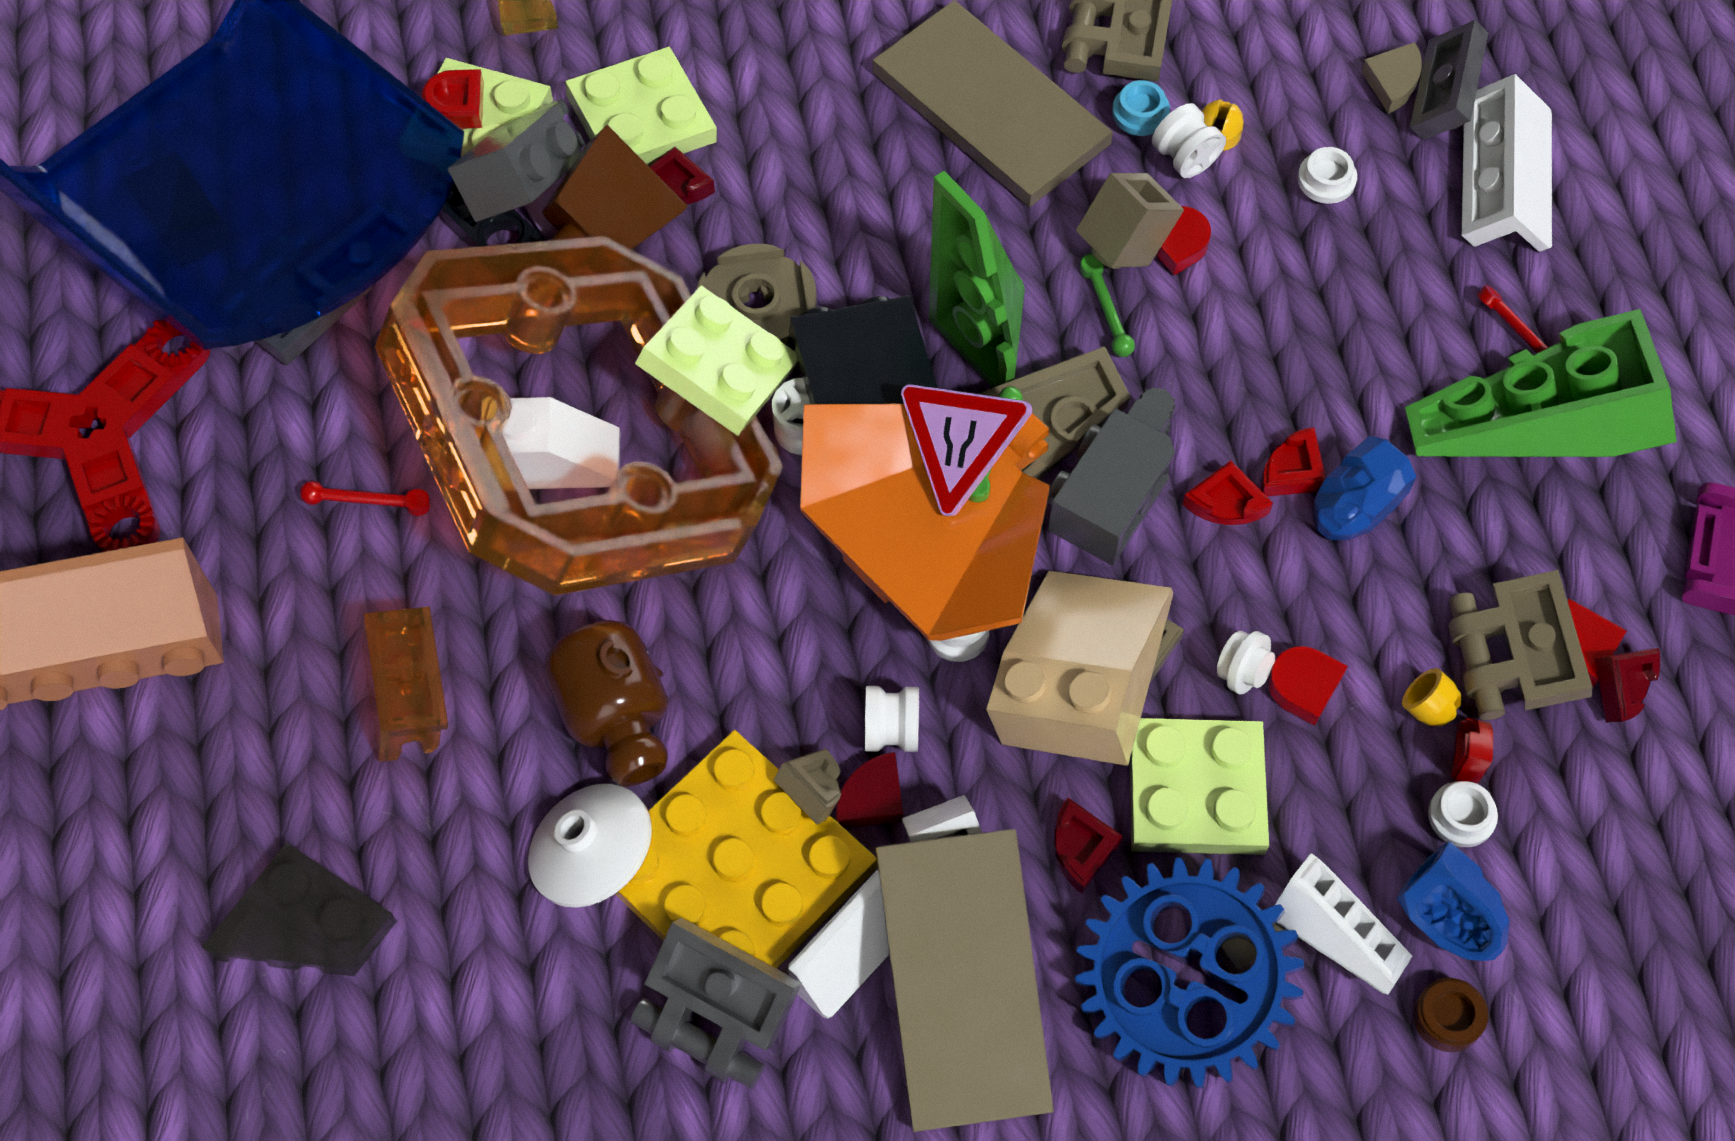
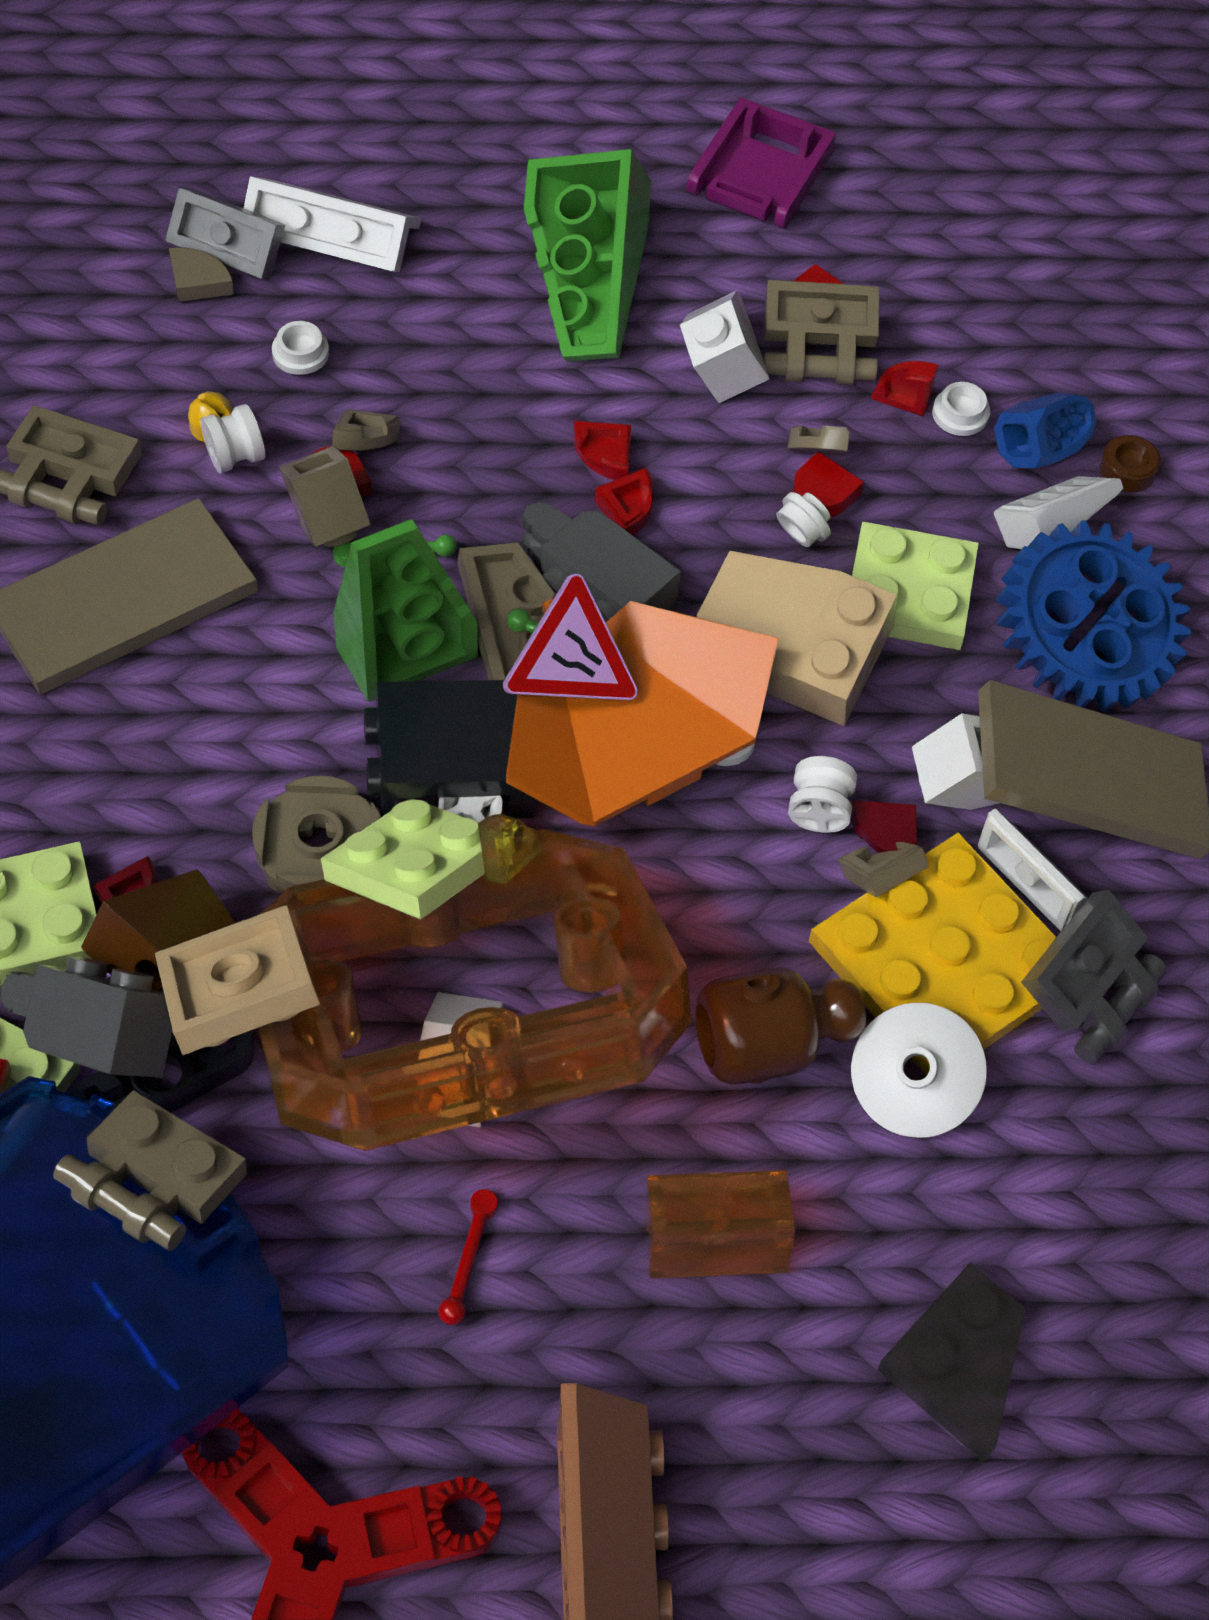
camera: 85 degrees left, 5 degrees down
(383, 231) = (163, 1156): none -> dark tan plate
(525, 221) = (235, 980): none -> tan plate
(731, 420) = (506, 846): none -> clear yellow tile
(1082, 844) = (952, 679): dark red tile -> none
(1140, 108) = (174, 471): medium azure plate -> none
(1238, 247) = (365, 430): none -> dark tan tile
(1362, 490) = (648, 400): blue rock -> none
(1363, 669) = (827, 440): none -> dark tan tile
(1432, 698) = (847, 399): yellow hinge -> none
(1459, 543) = (724, 347): none -> white slope
(1495, 301) = (492, 261): red hinge -> none
(1625, 682) = (846, 270): dark red tile -> none

